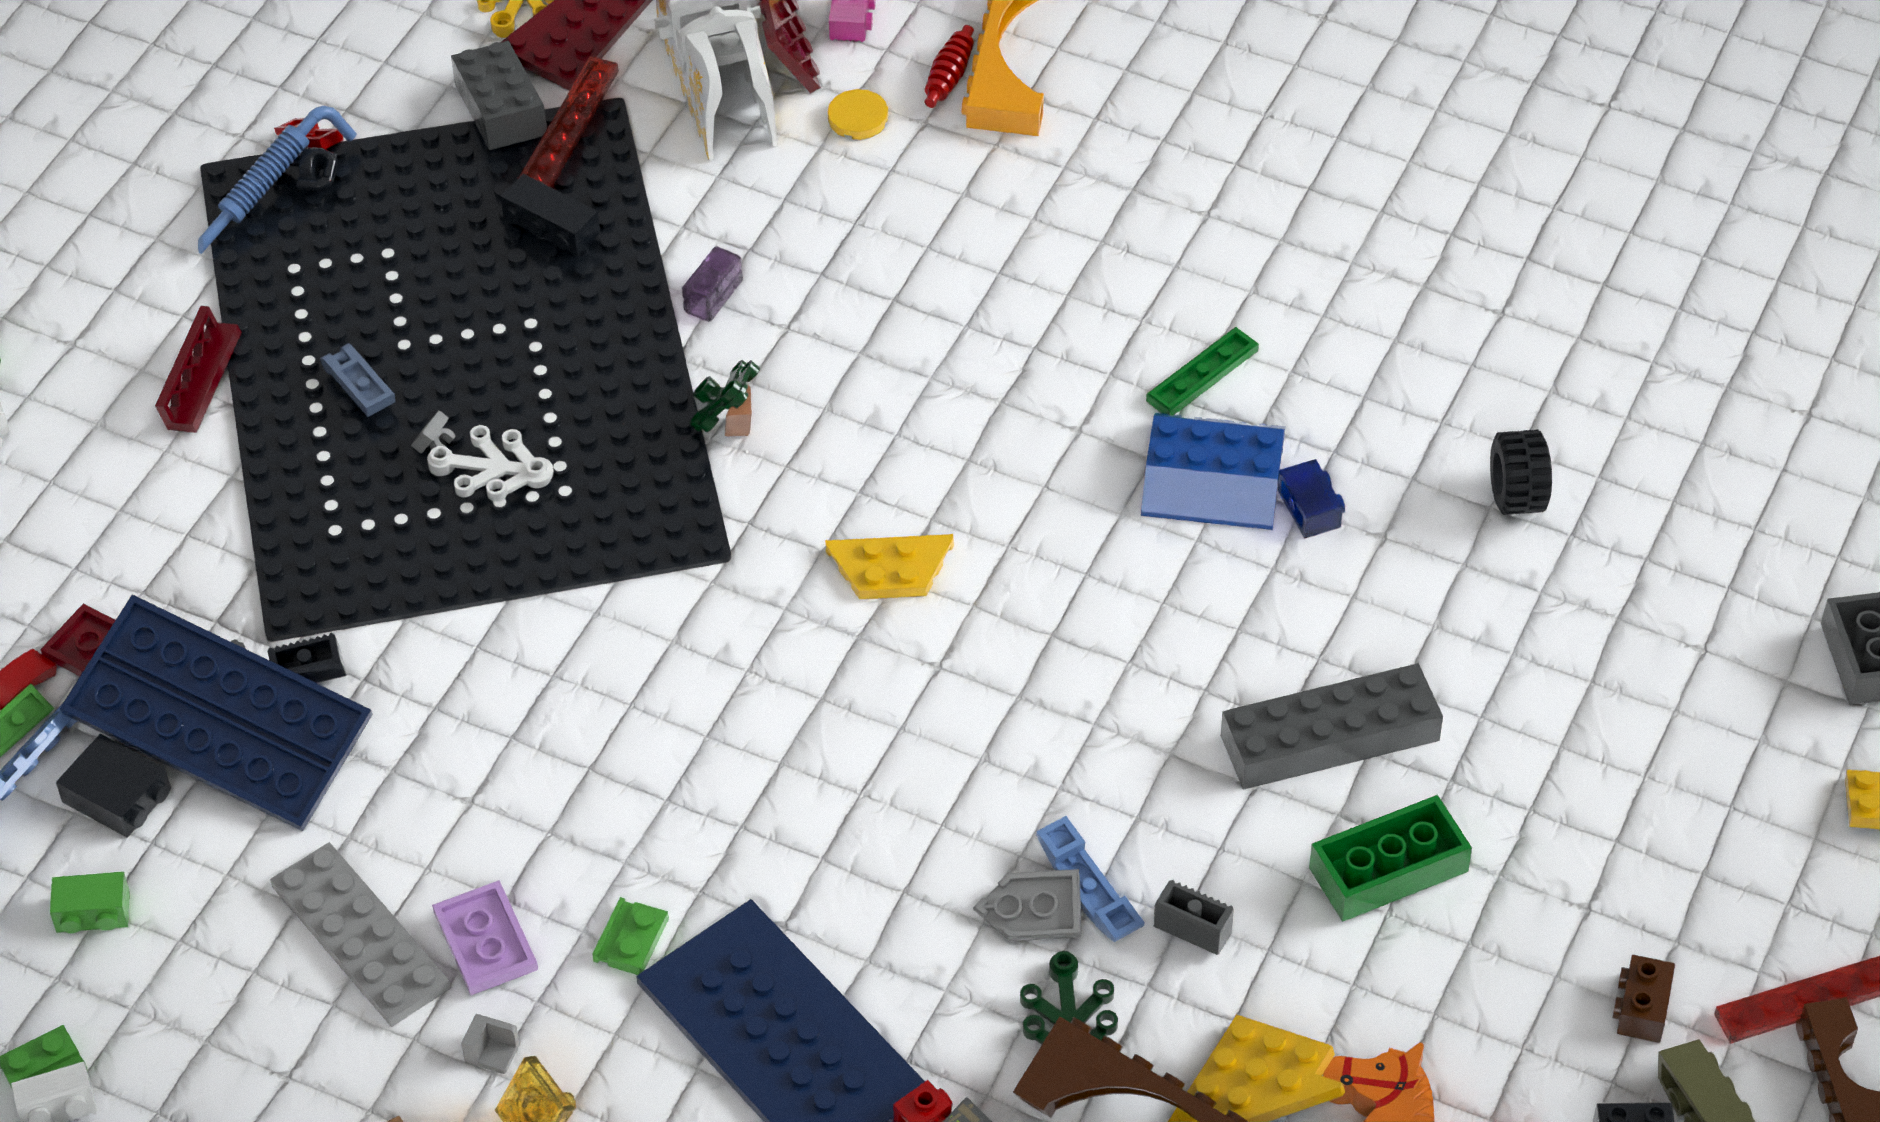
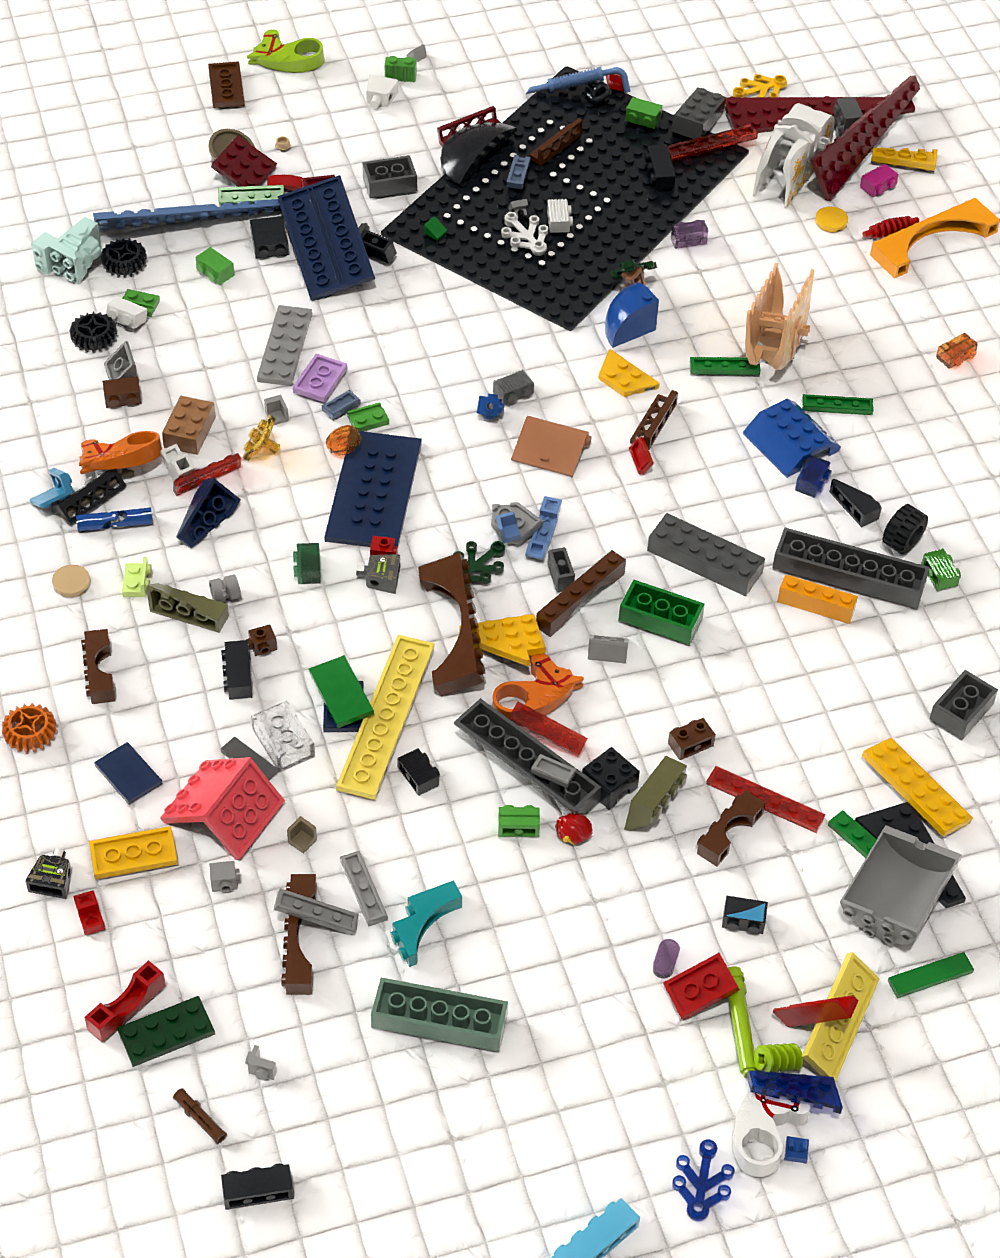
camera: 45 degrees right, 0 degrees up
(177, 539) = (389, 176): none -> dark grey brick
(239, 398) = (469, 146): none -> black brick
(352, 293) = (557, 142): none -> reddish brown fence
(353, 565) = (434, 229): none -> green slope
(424, 151) = (643, 112): none -> bright green brick
(506, 400) = (558, 215): none -> white brick
(570, 951) = (341, 404): none -> sand blue plate
(649, 1001) = (343, 440): none -> clear orange tile
(776, 710) = (513, 387): none -> dark grey brick
(785, 766) = (483, 406): none -> blue brick
(792, 463) = (631, 314): none -> blue brick
(933, 745) = (550, 446): none -> nougat door
(1001, 437) = (723, 366): none -> green plate
(1024, 585) = (659, 421): none -> reddish brown fence
(1032, 312) = (773, 329): none -> light nougat animal
(1053, 923) = (508, 527): none -> medium blue panel
(1070, 660) = (641, 455): none -> red tile
(1249, 174) = (957, 350): none -> clear orange brick
(1260, 934) = (557, 611): none -> reddish brown arch
(1385, 970) = (607, 648): none -> light grey slope
(1407, 489) = (858, 504): none -> black slope
(1519, 584) = (851, 567): none -> dark grey brick
(1535, 663) = (817, 599): none -> light orange brick
(1613, 491) = (942, 571): none -> bright green brick

